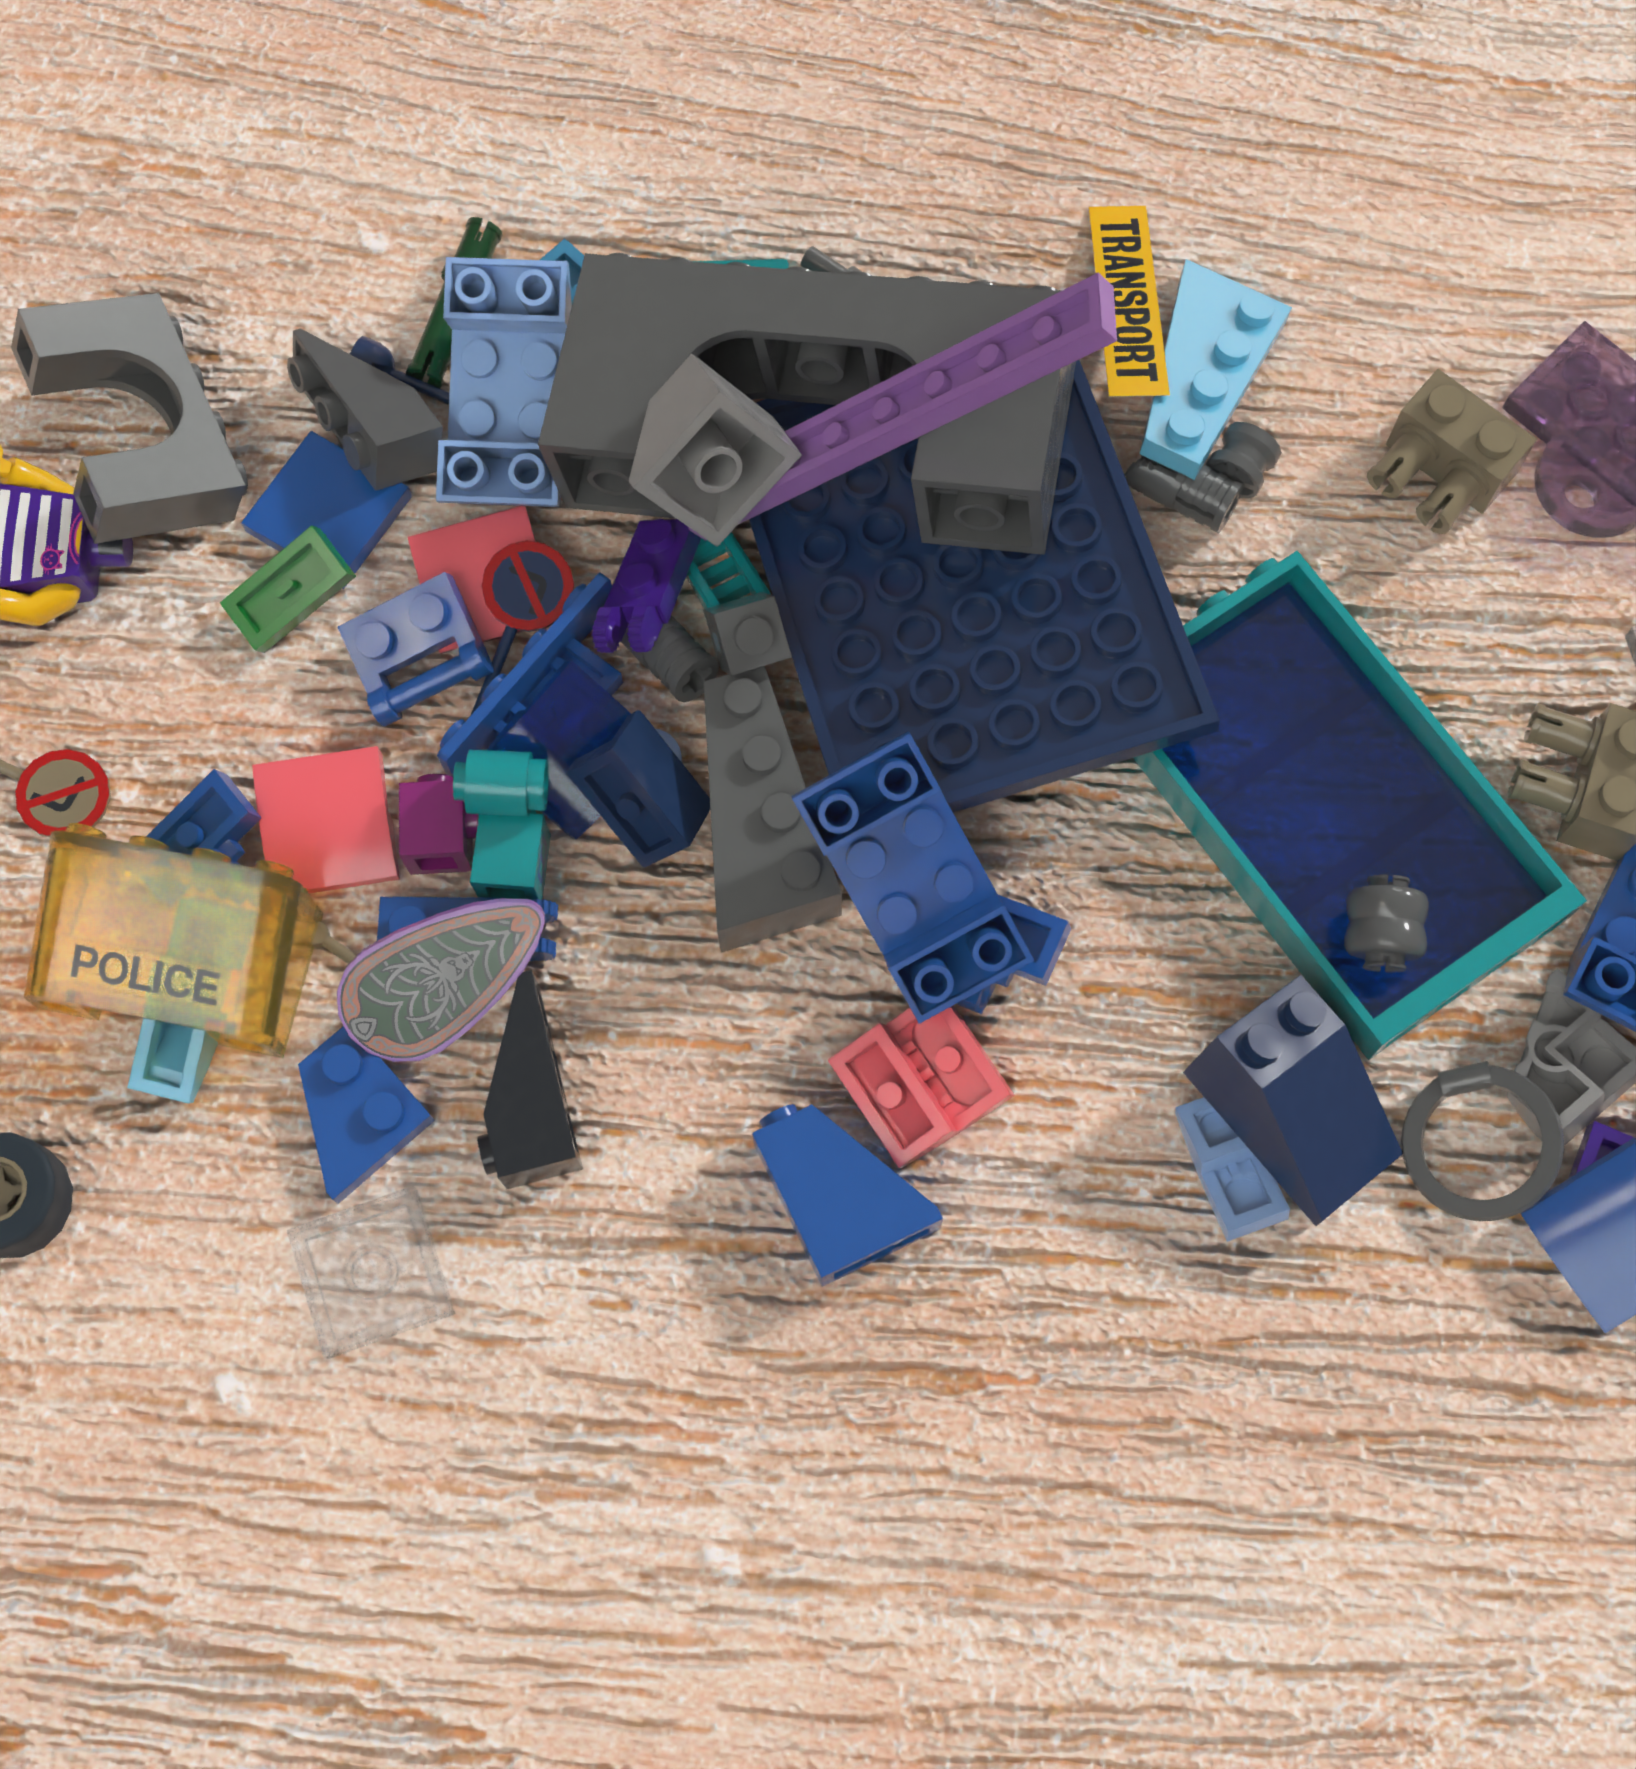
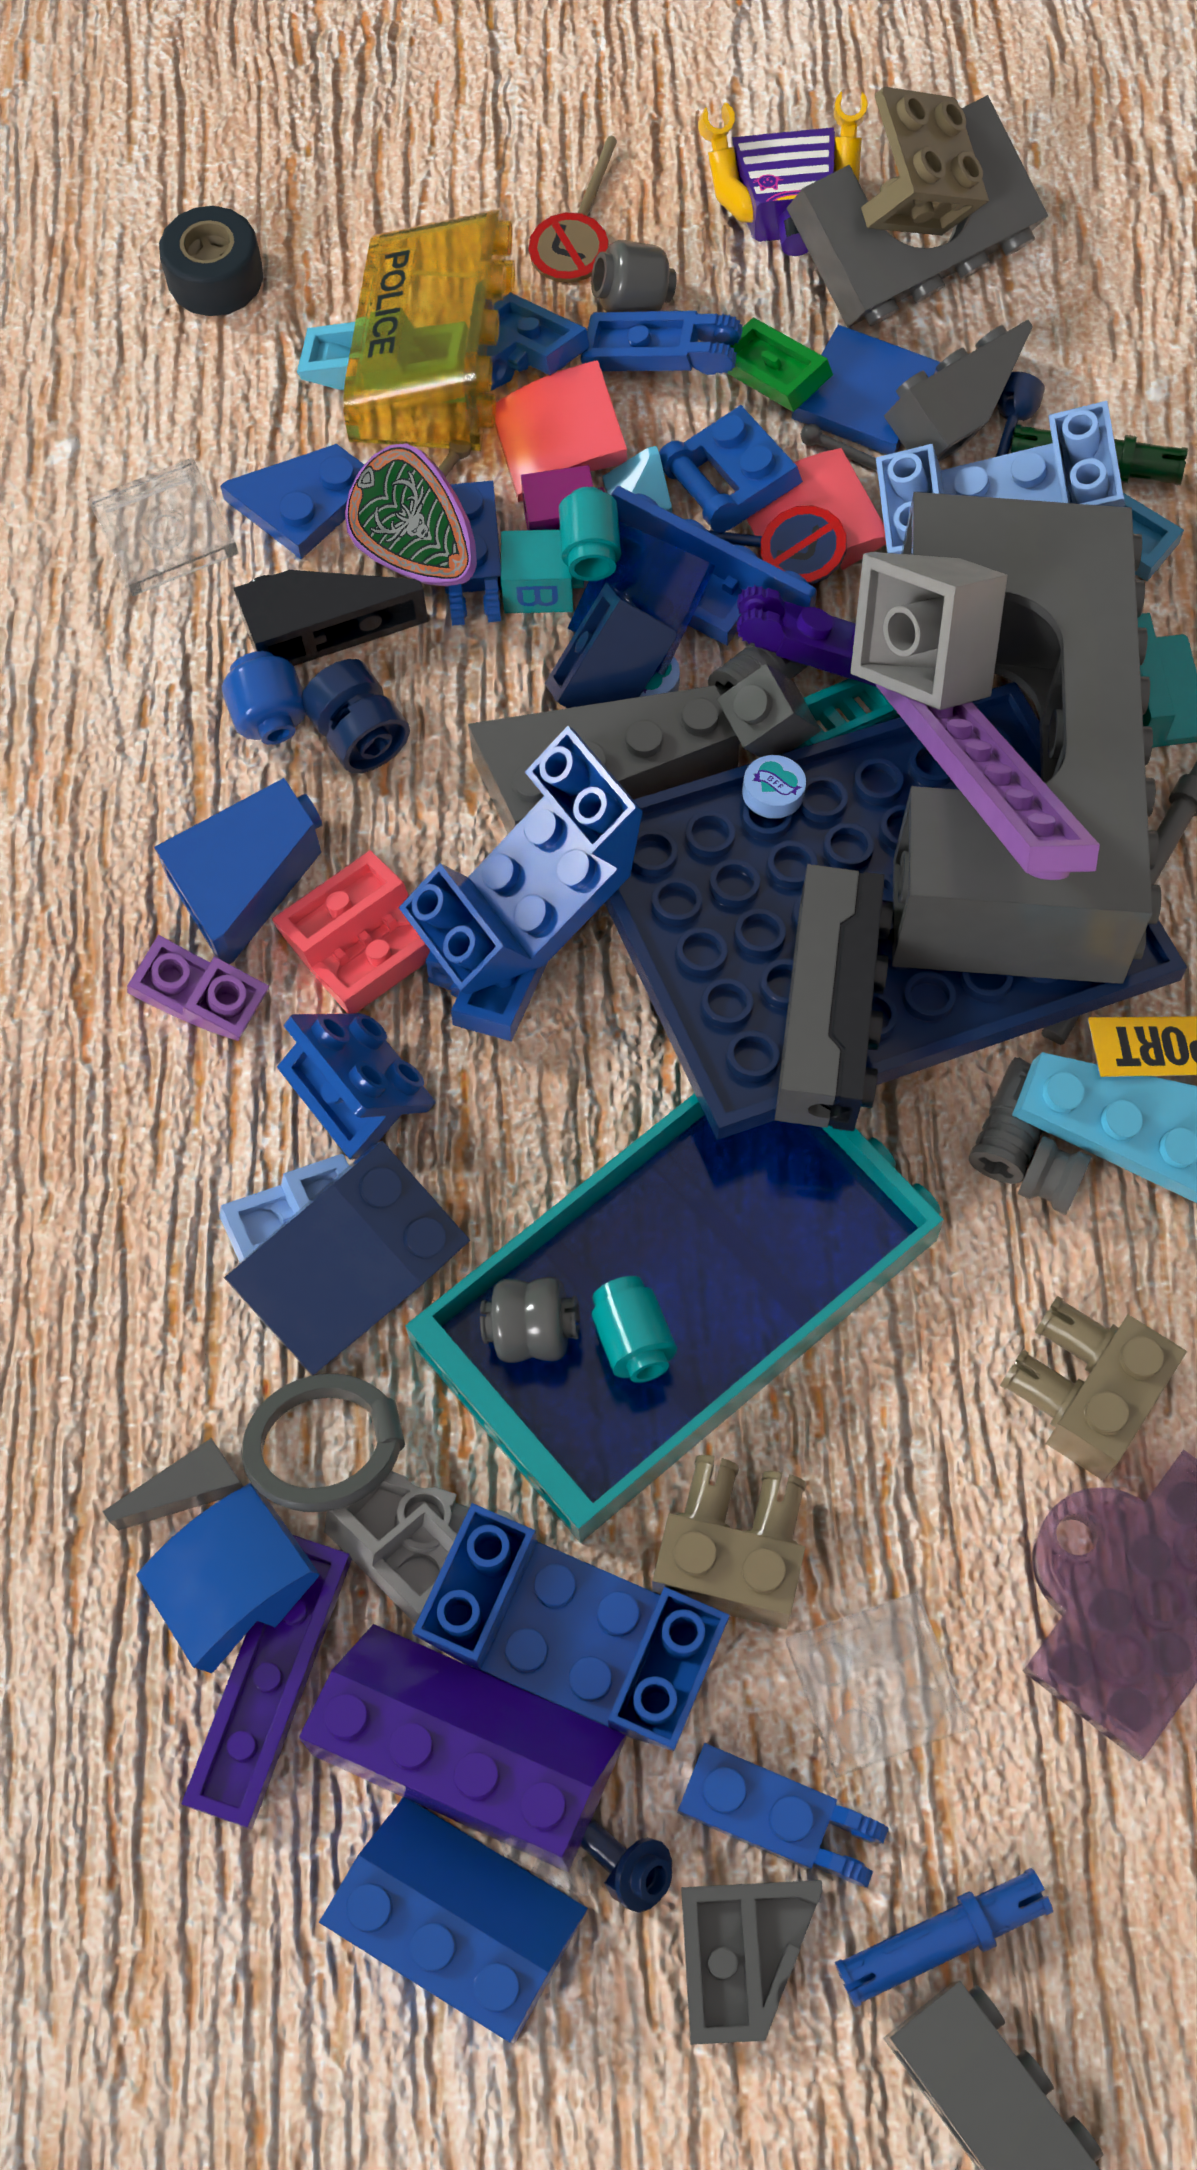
camera: 85 degrees right, 5 degrees down
(101, 367) = (935, 165): none -> dark tan bracket
(140, 721) = (632, 277): none -> dark grey head
(234, 701) = (662, 341): none -> blue hinge
(374, 568) = (812, 435): none -> dark grey hinge
(409, 747) = (641, 475): none -> medium azure slope
(633, 1157) = (264, 697): none -> blue head
(647, 1063) = (355, 716): none -> dark blue wheel
(832, 637) = (773, 786): none -> light blue tile
(972, 1251) = (197, 990): none -> medium lavender slope
(1094, 600) = (832, 997): none -> piece
(1099, 1089) = (351, 1077): none -> blue bracket
(1406, 827) = (632, 1329): none -> teal brick
(1514, 1279) = (186, 1484): none -> dark grey piece

